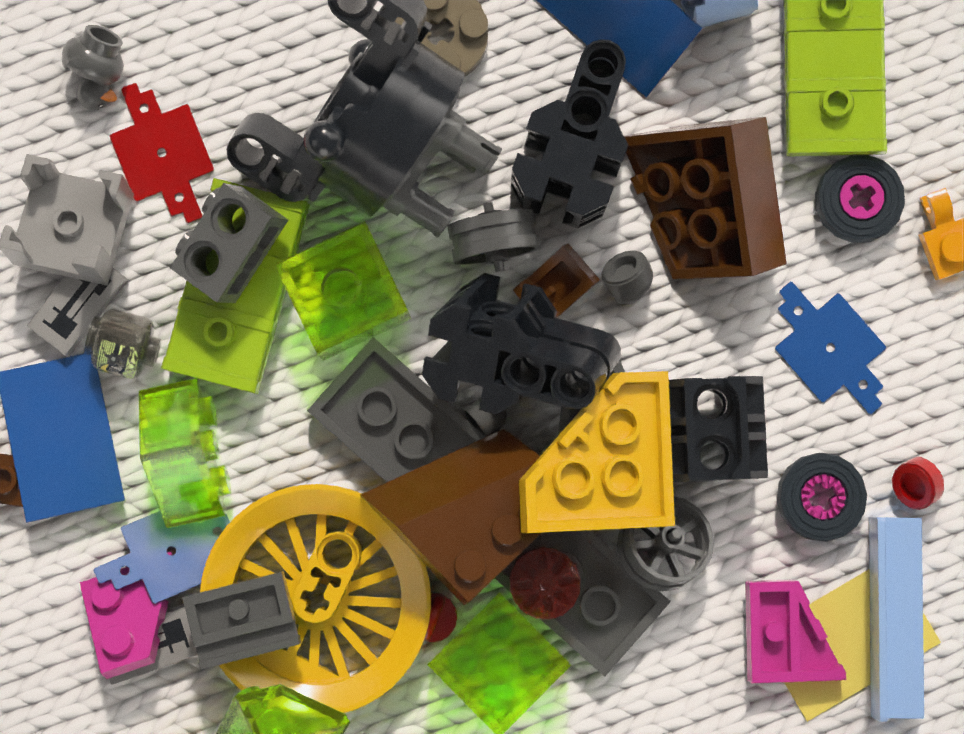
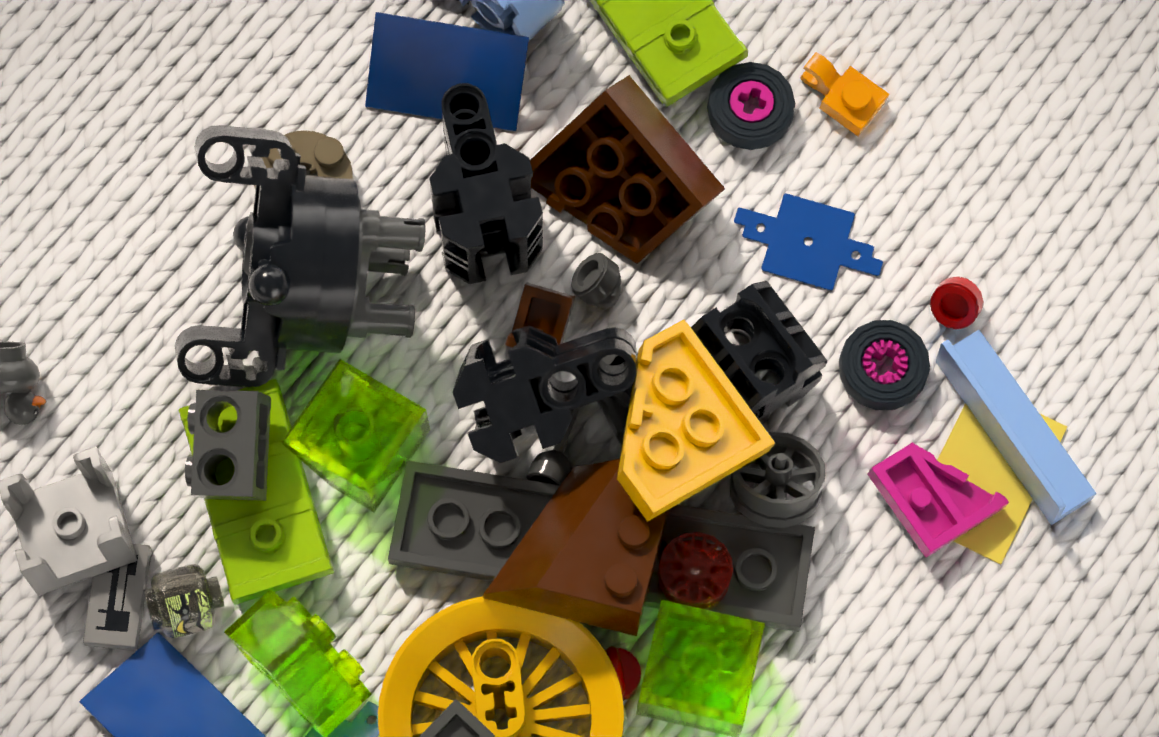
camera: 40 degrees left, 15 degrees down
(184, 157) = (118, 399): red piece -> none
(493, 236) = (460, 311): dark grey wheel -> none

